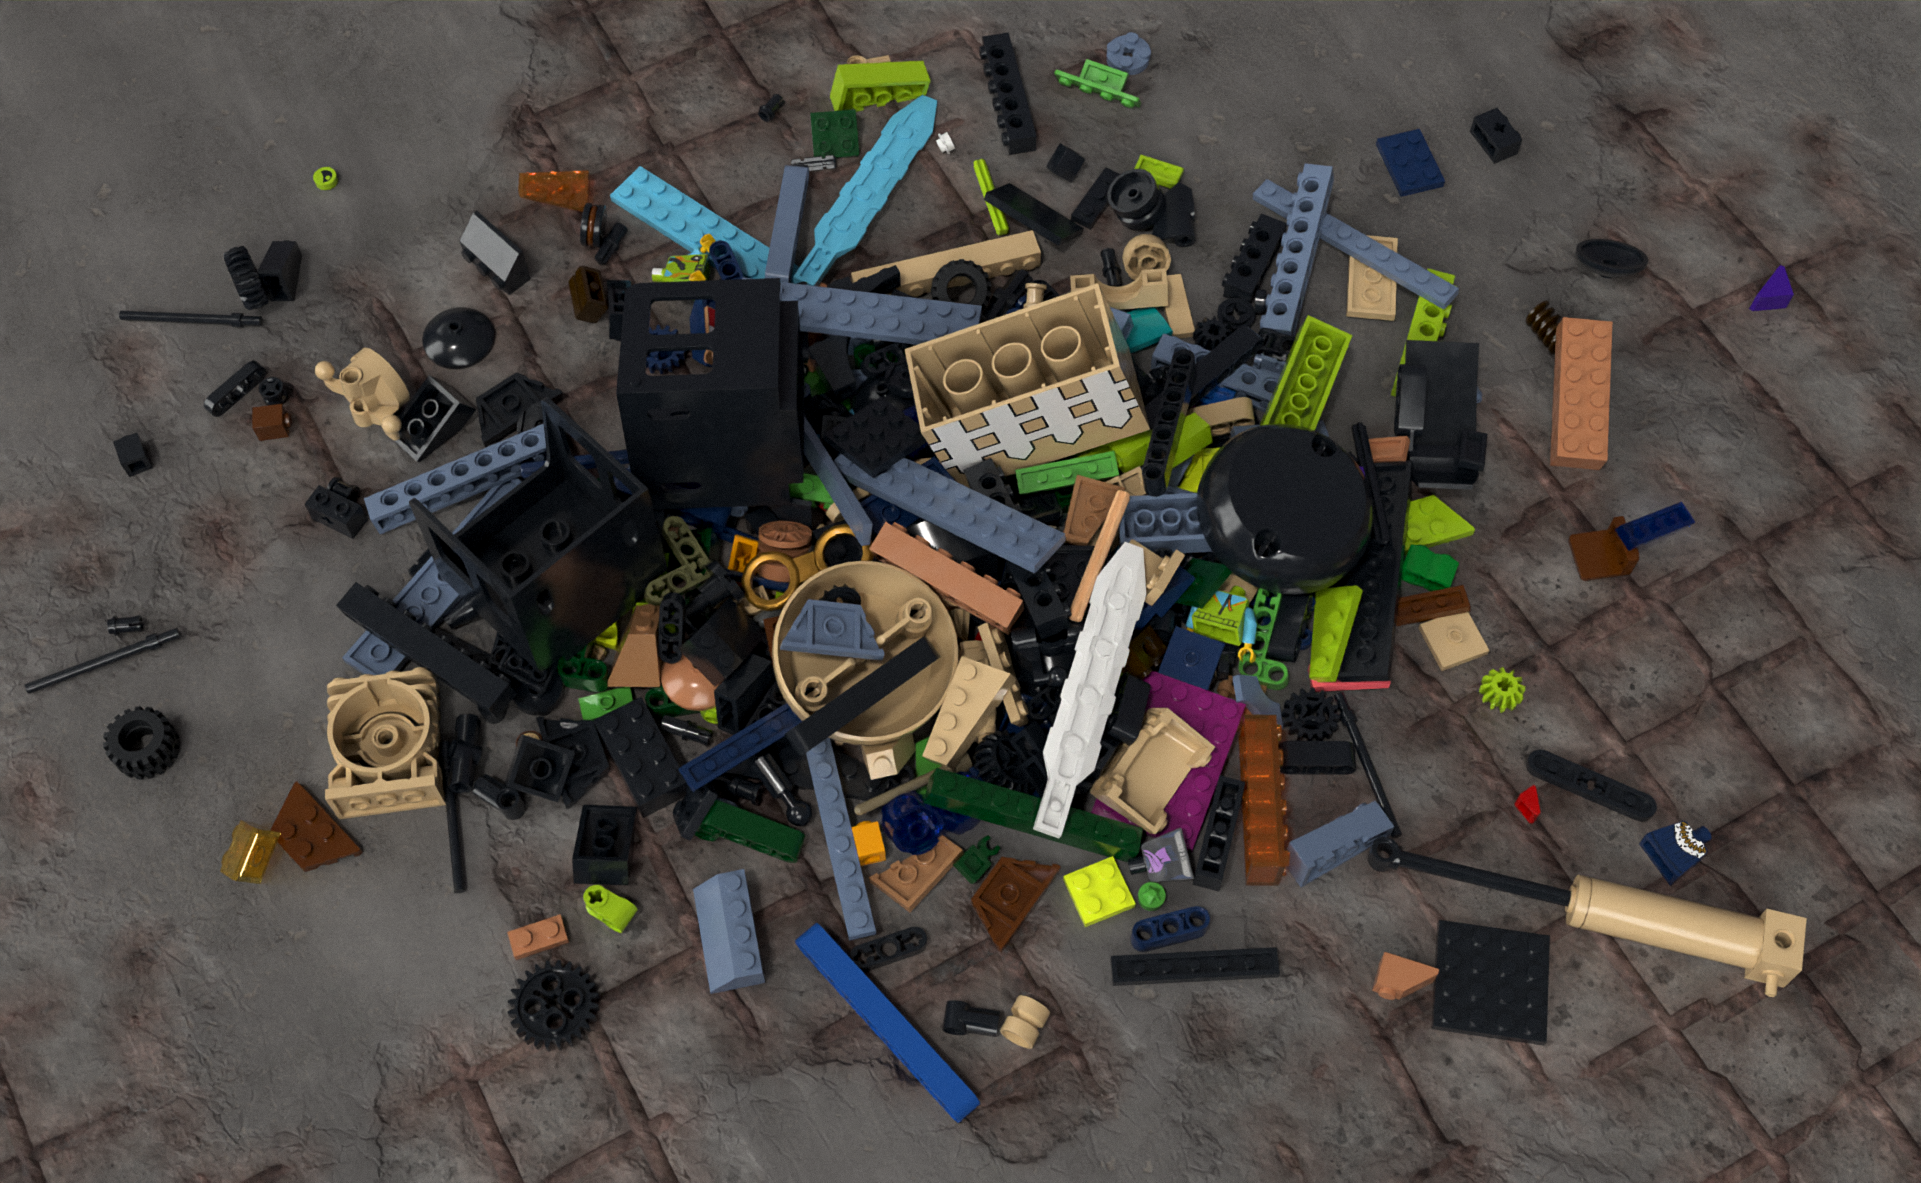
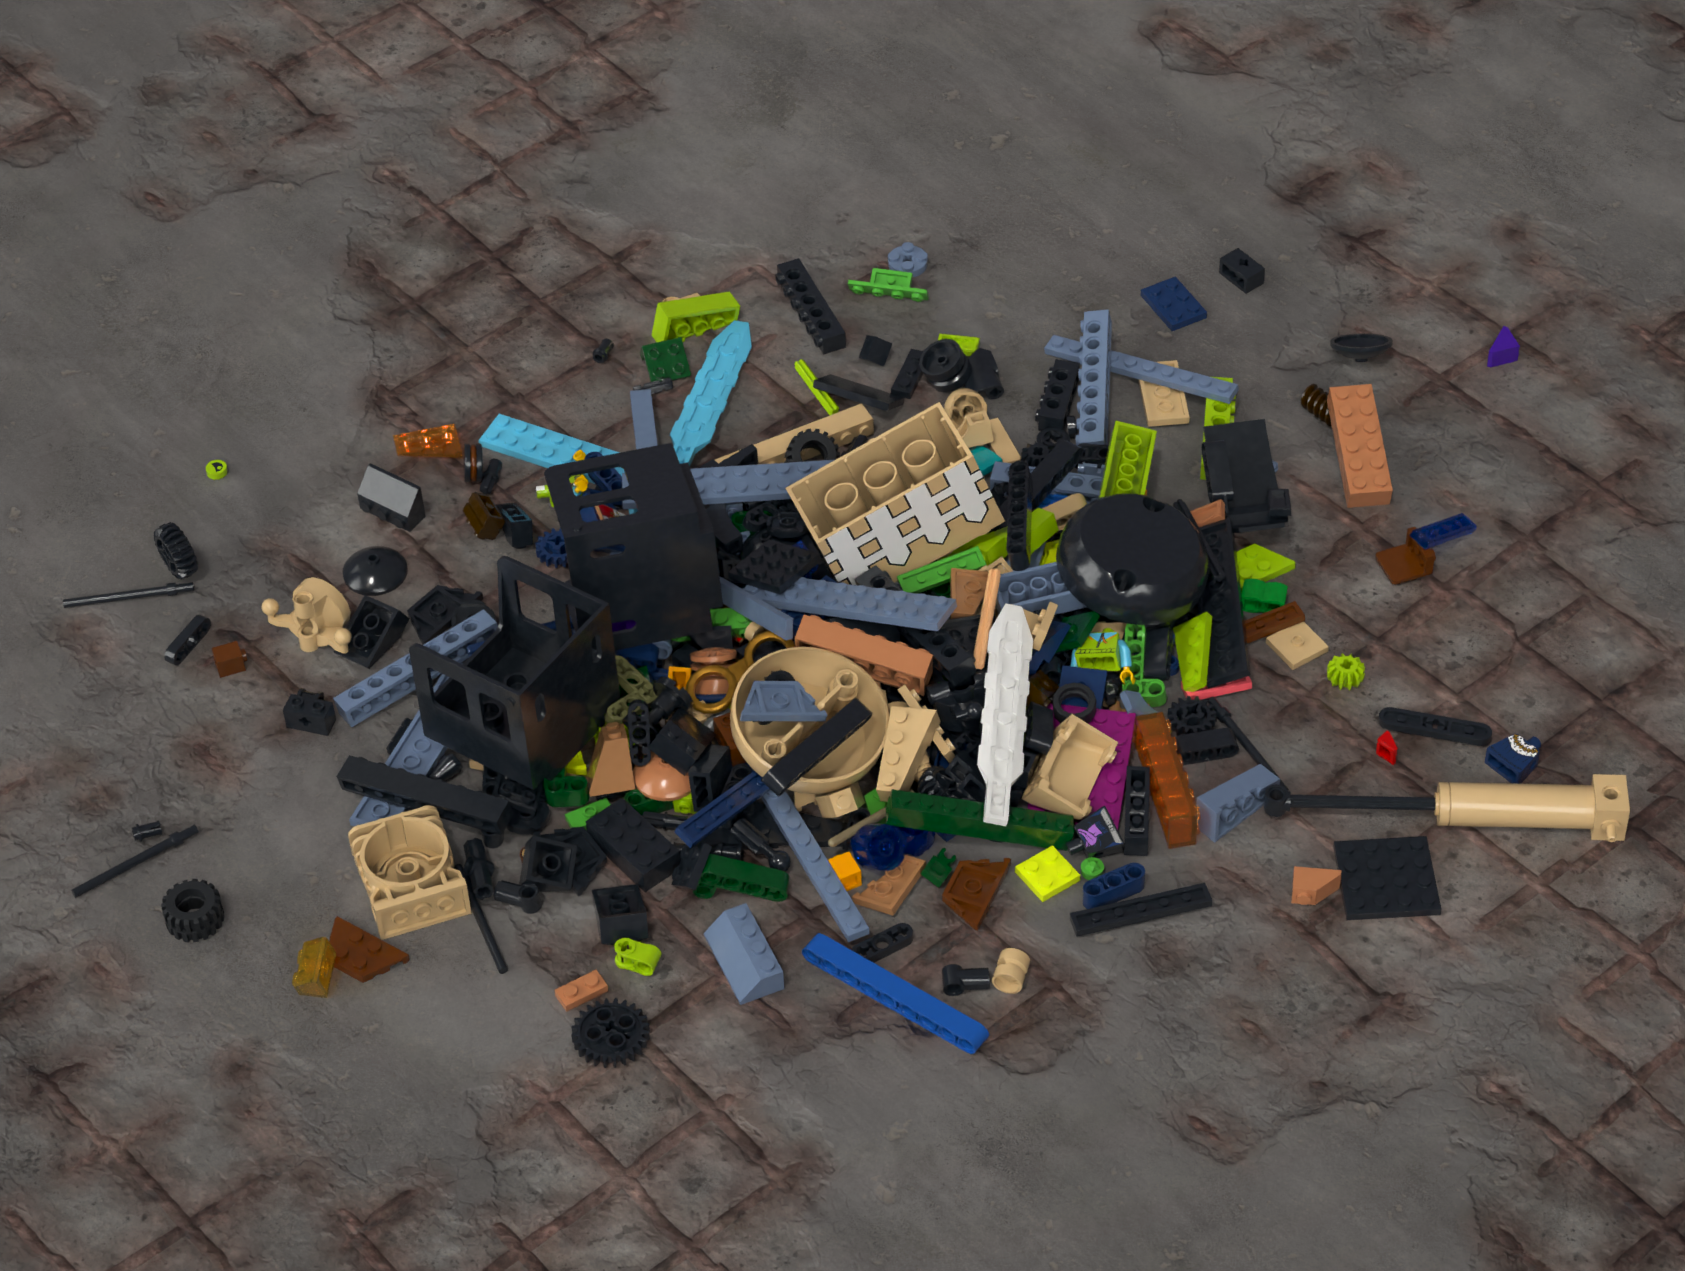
camera: 10 degrees left, 15 degrees down
(132, 454) = (112, 704): black brick -> none
(275, 386) = (222, 634): black wheel -> none
(281, 270) = (202, 542): black slope -> none
(945, 143) = (765, 353): white plate -> none
(1176, 664) = (1074, 690): none -> black tyre

